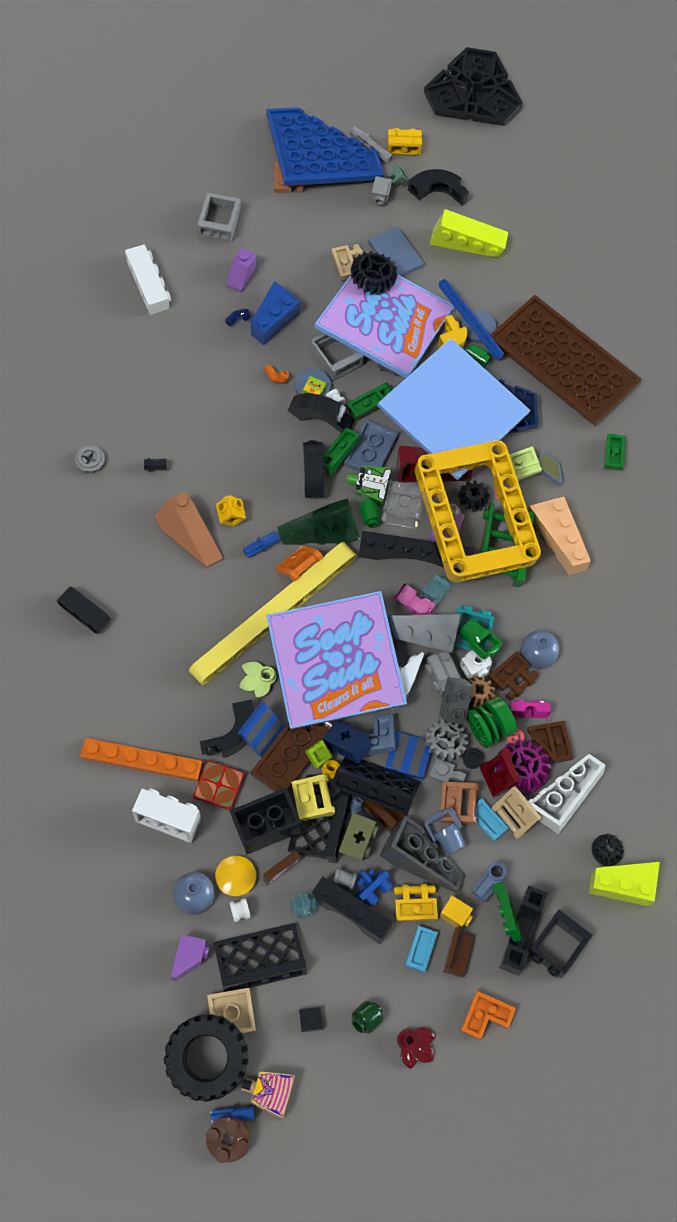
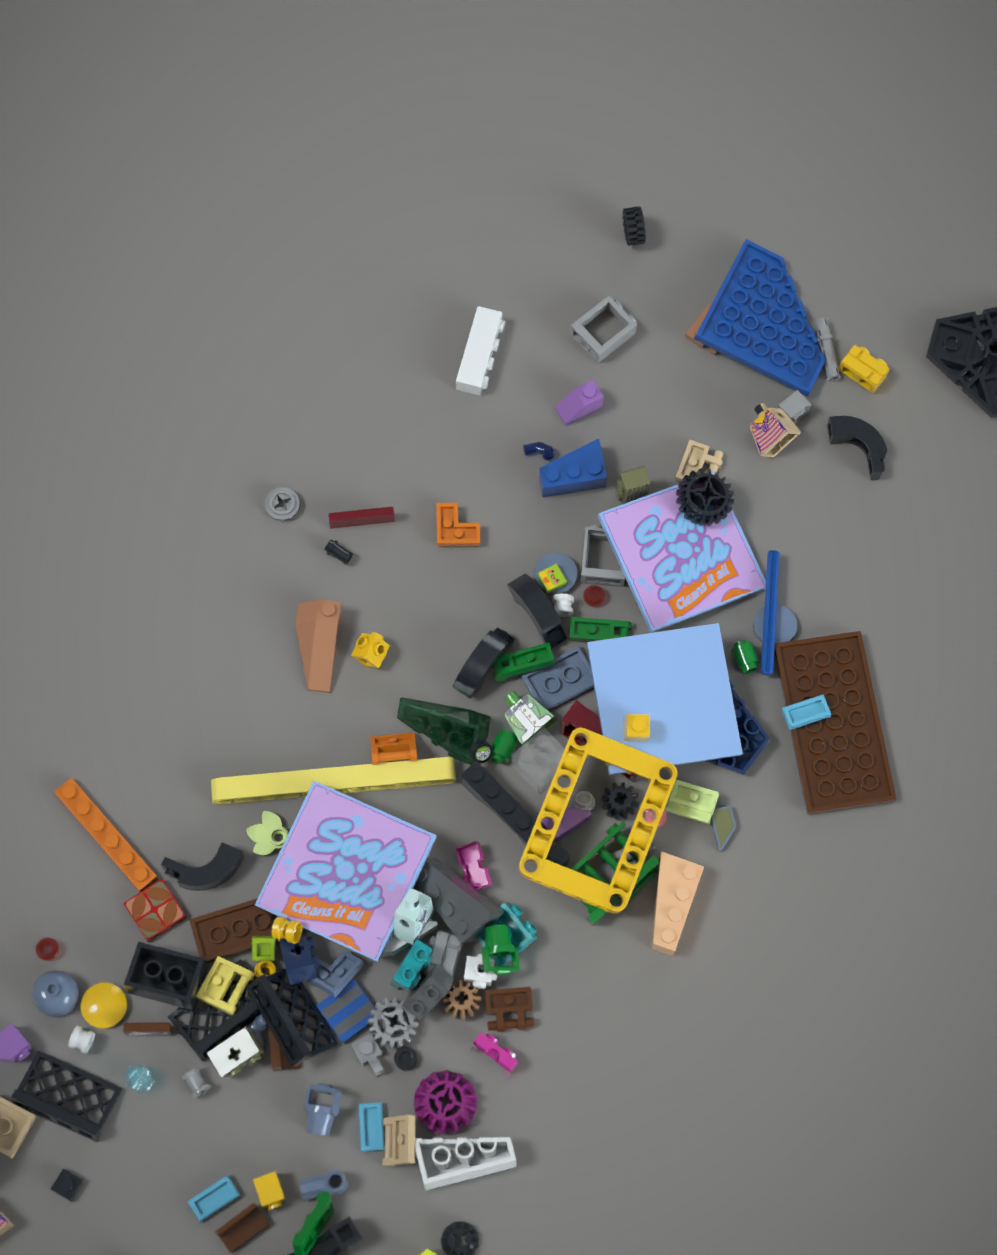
camera: 40 degrees right, 5 degrees up
(83, 610) = (161, 653): black beam -> none
(153, 431) = (361, 517): none -> dark red tile
(163, 861) = (44, 943): none -> clear red plate
(166, 815) = (83, 904): white brick -> none
(188, 142) = (634, 226): none -> black tyre
(221, 402) = (454, 533): none -> orange plate
(261, 544) = (374, 704): blue axle -> none
(261, 729) = (229, 886): blue tile -> none
(281, 377) = (526, 540): orange arm -> none
(320, 295) = (632, 485): none -> olive brick
(323, 728) = (287, 929): none -> yellow wheel
(349, 382) = (594, 595): none -> clear red plate
(360, 523) = (481, 751): none -> black tile
(363, 916) = (177, 1115): black arch -> none
(367, 1017) = (115, 1221): dark green head -> none
(379, 880) = (224, 1106): blue hips -> none
(380, 209) = (772, 430): none -> tan torso
(397, 247) = (755, 487): sand blue tile -> none
(399, 175) = (828, 403): sand green tile -> none
(405, 650) = (413, 910): none -> light aqua torso
(415, 853) = (279, 1110): dark grey wedge -> none
(415, 909) = (236, 1158): yellow plate -> none
(430, 692) = (407, 974): none -> teal plate
(436, 589) = (503, 869): clear light blue brick -> none
(452, 798) = (352, 1084): nougat plate -> none
(453, 332) = (737, 625): yellow brick -> none
(455, 434) = (636, 727): none -> yellow brick
(468, 235) = (844, 520): neon yellow wedge -> none
(491, 722) = (445, 1037): green wheel -> none
(504, 777) = (413, 1099): dark red plate -> none
(519, 735) = (463, 1066): coral tile -> none
(540, 649) = (556, 1002): sand blue cylinder -> none
(544, 363) = (806, 712): none -> medium azure tile
(553, 740) = (494, 1099): reddish brown wing -> none
(614, 452) = (802, 856): green plate -> none

